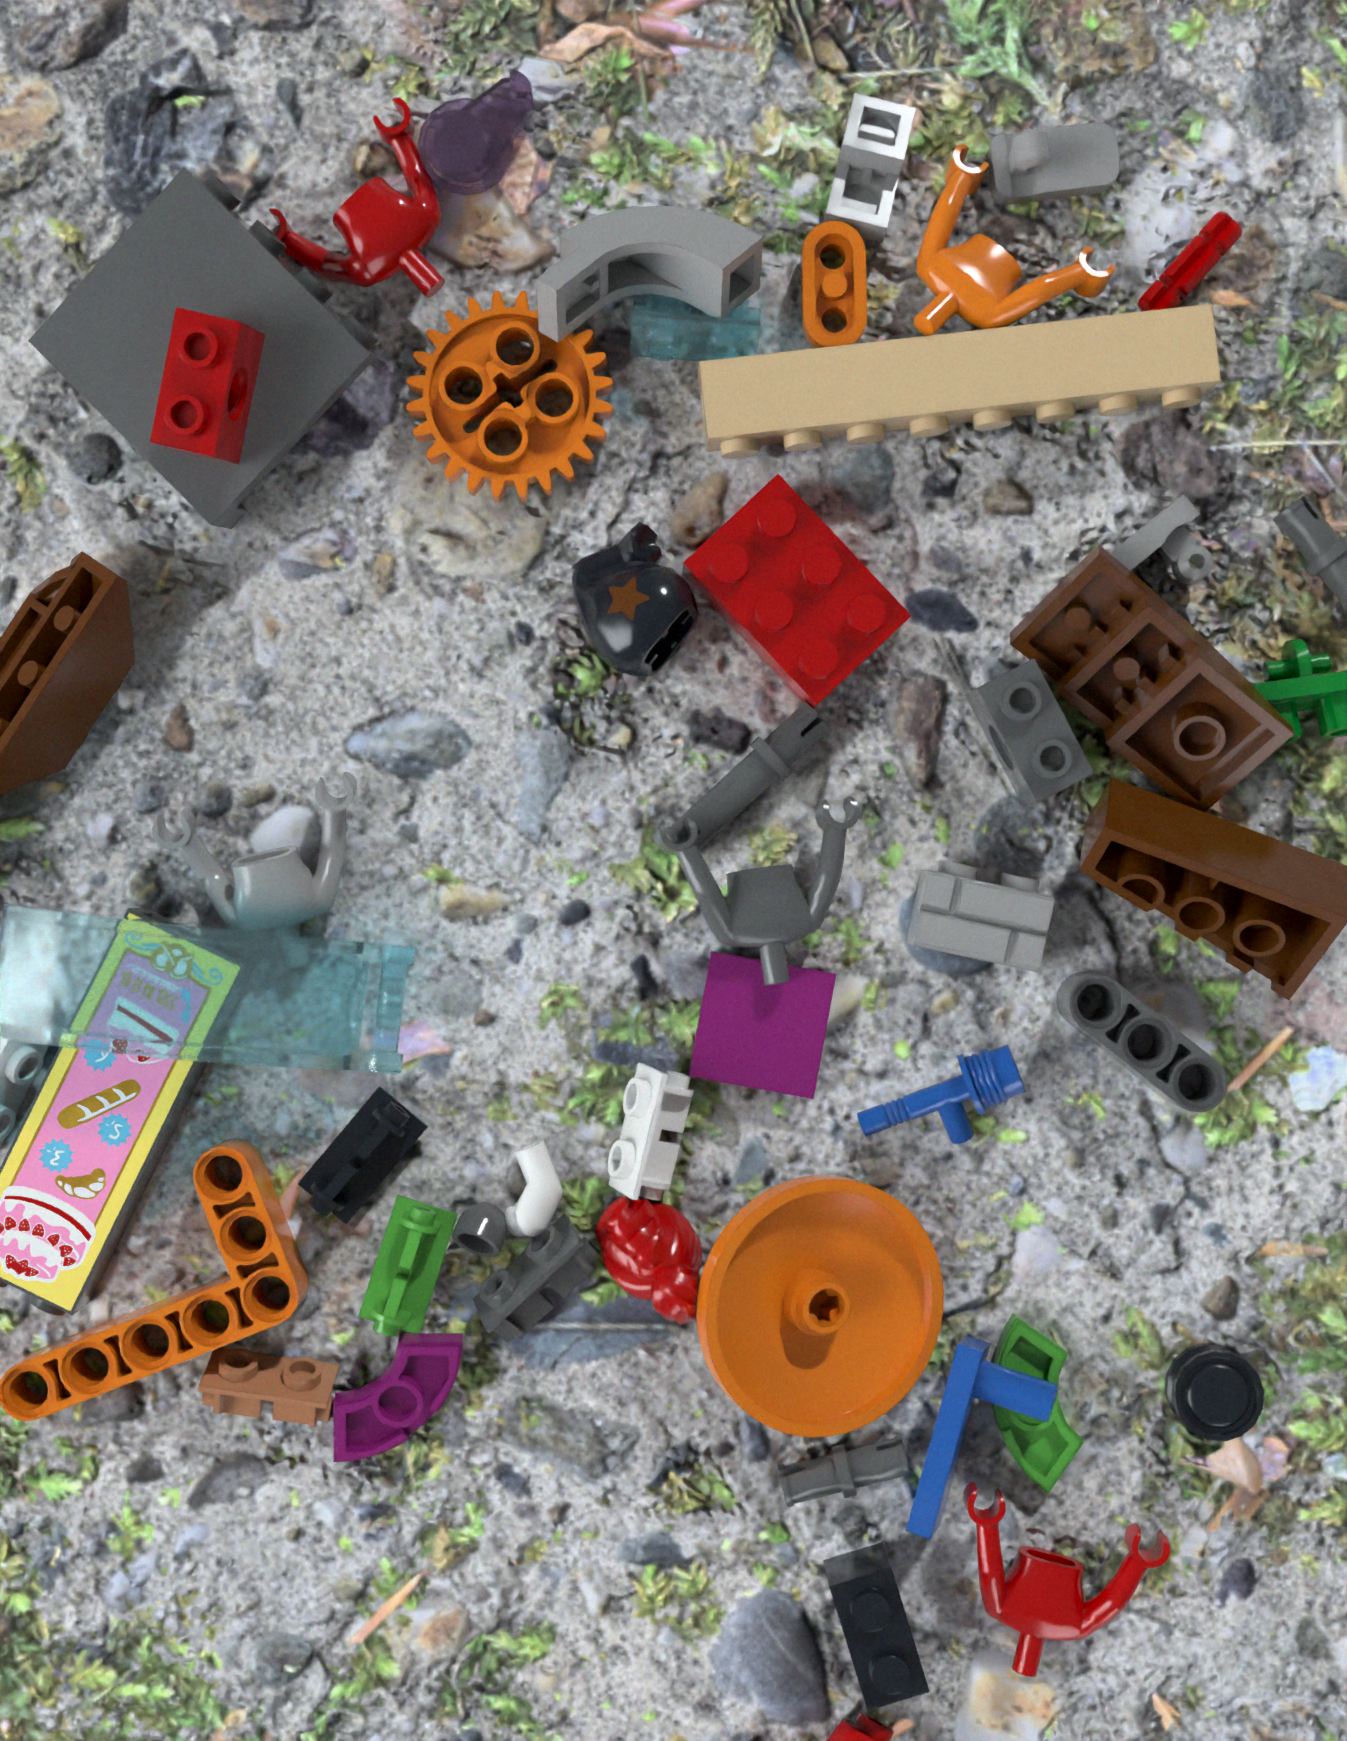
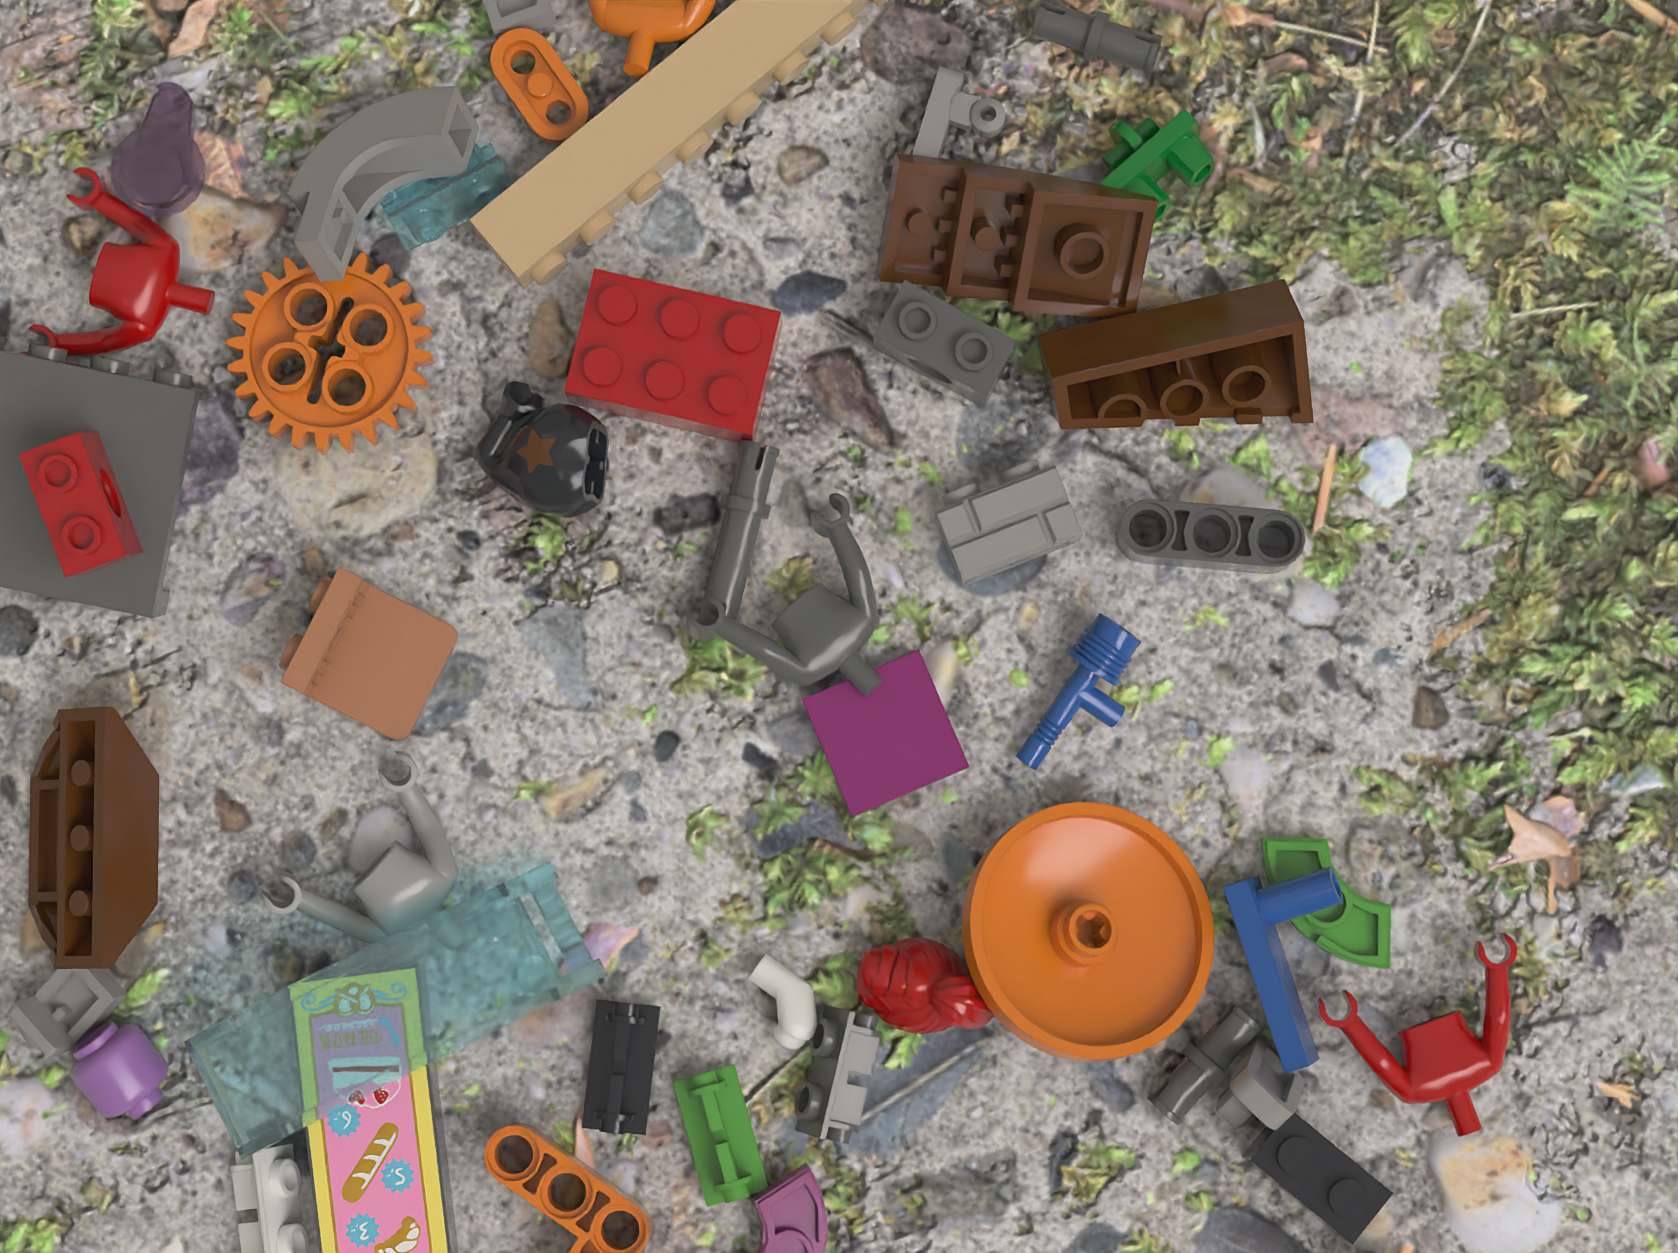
camera: 35 degrees left, 5 degrees down
(374, 675) = (368, 655): none -> nougat bracket
(481, 1229) = (763, 1063): dark grey hinge -> none
(639, 1160) = (855, 914): white hinge -> none
(876, 1529) = (1260, 1089): none -> light grey piece
(1214, 1392) = (1470, 789): black wheel -> none

